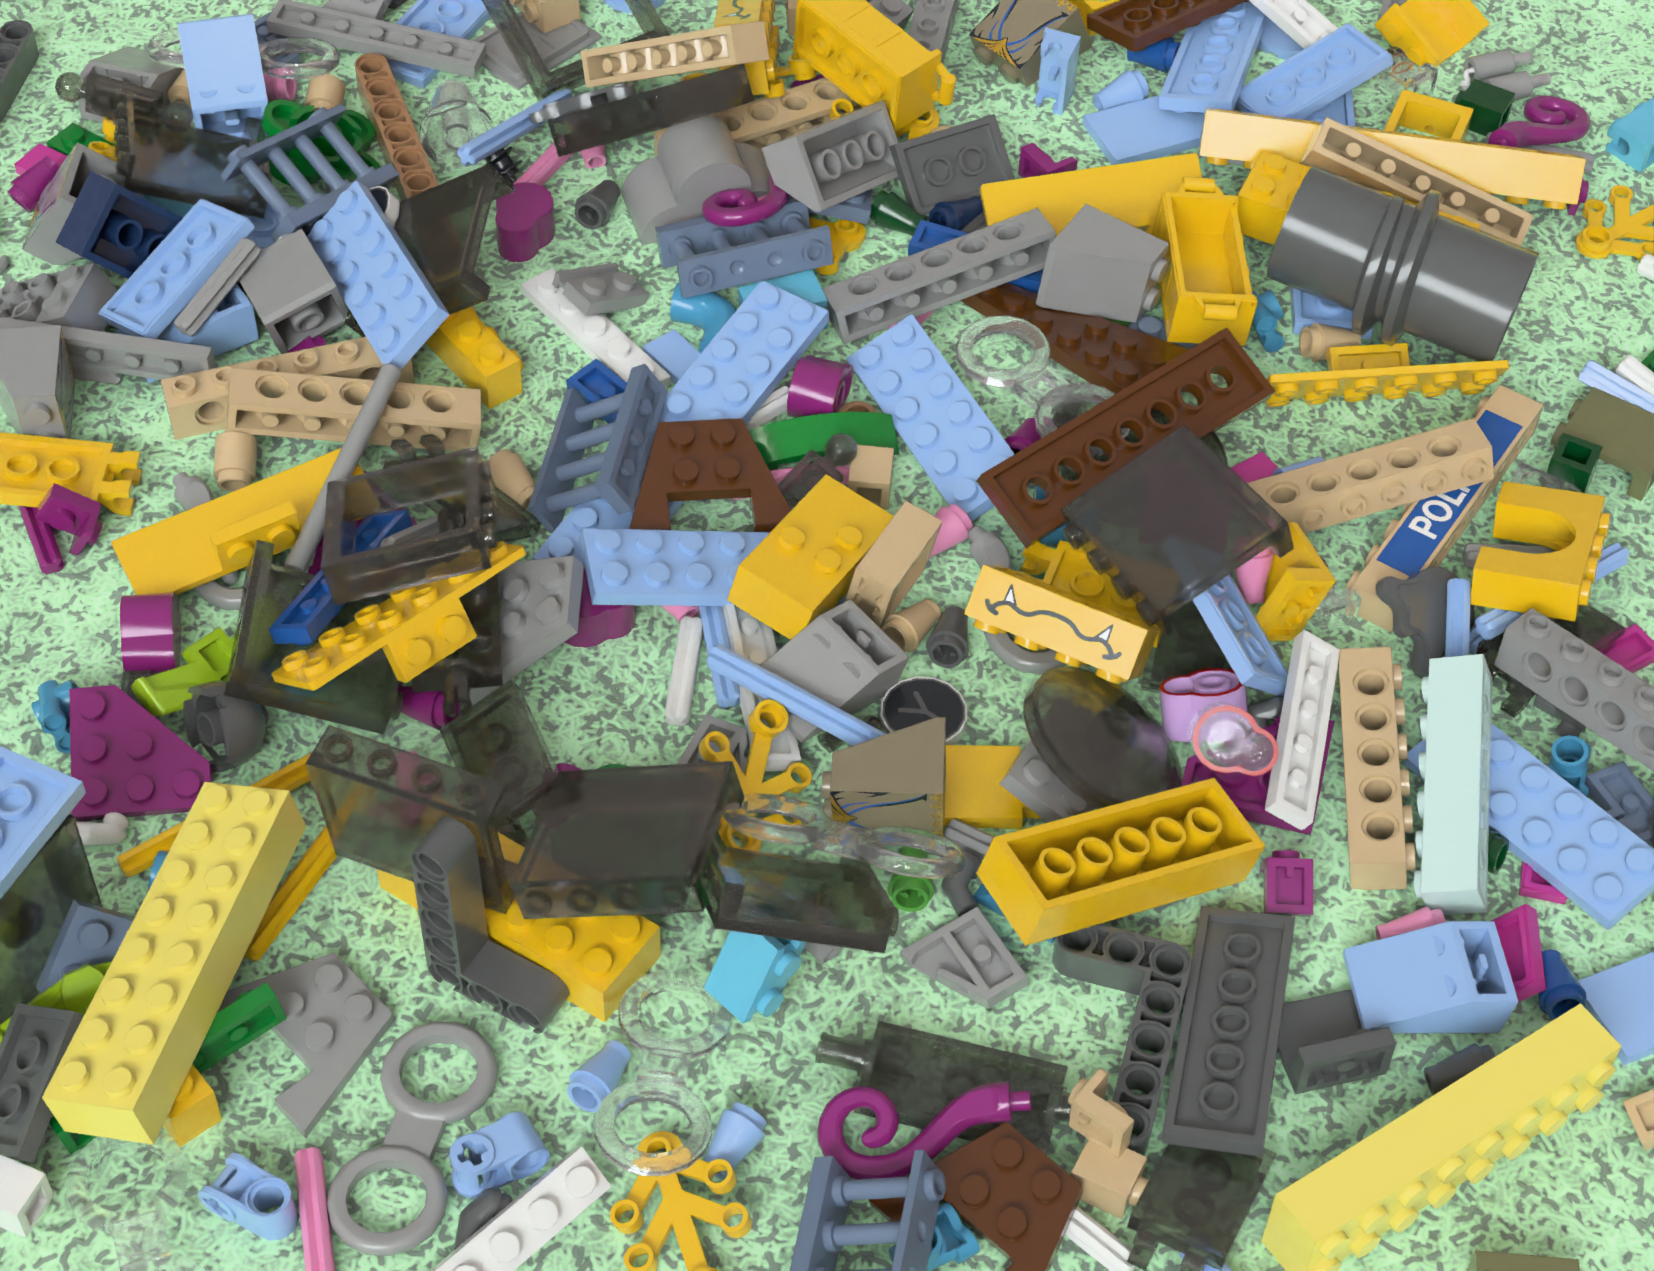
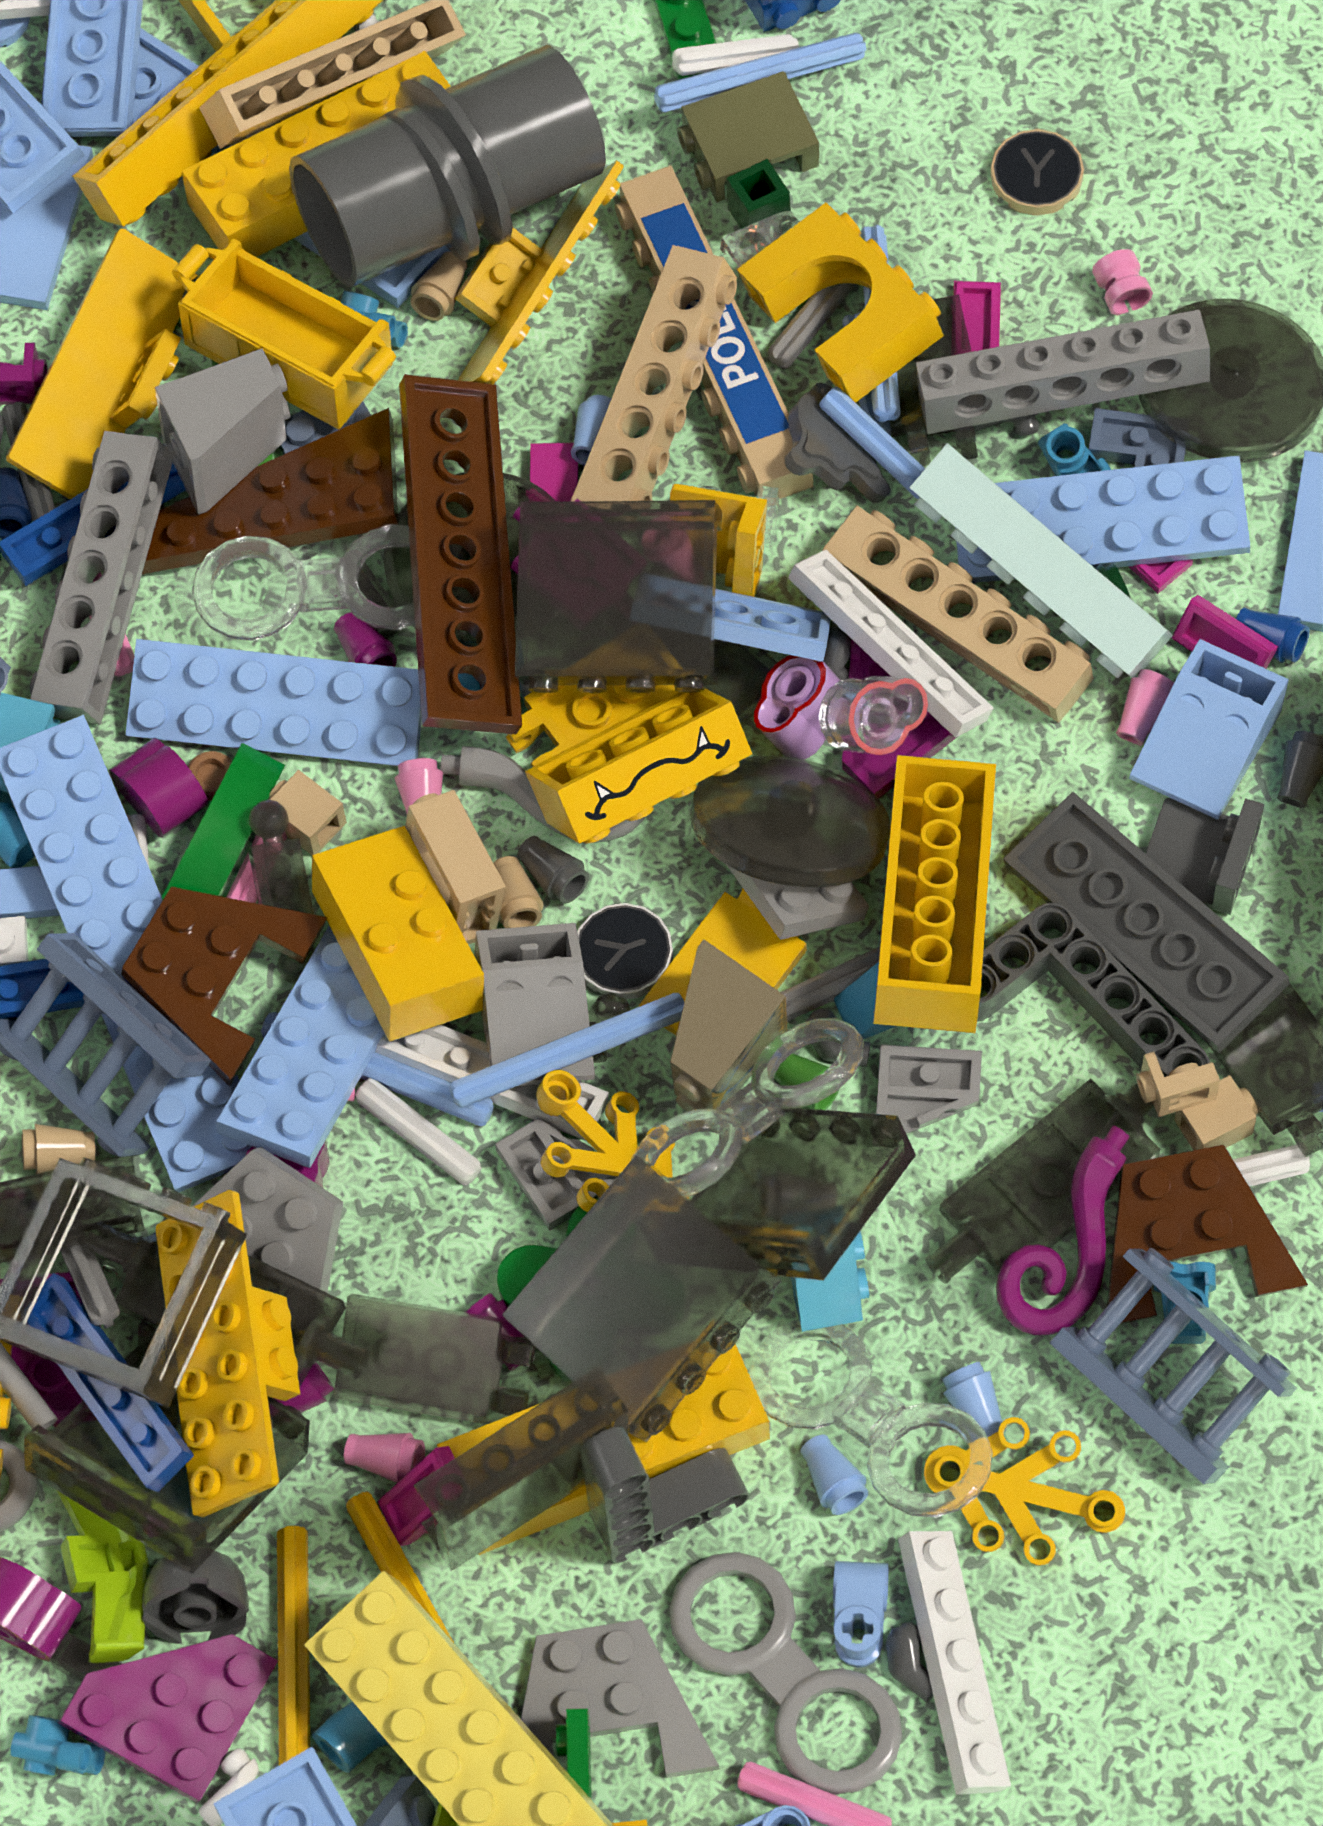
camera: 50 degrees left, 15 degrees up
(1288, 884) = (1029, 771): magenta bracket -> none

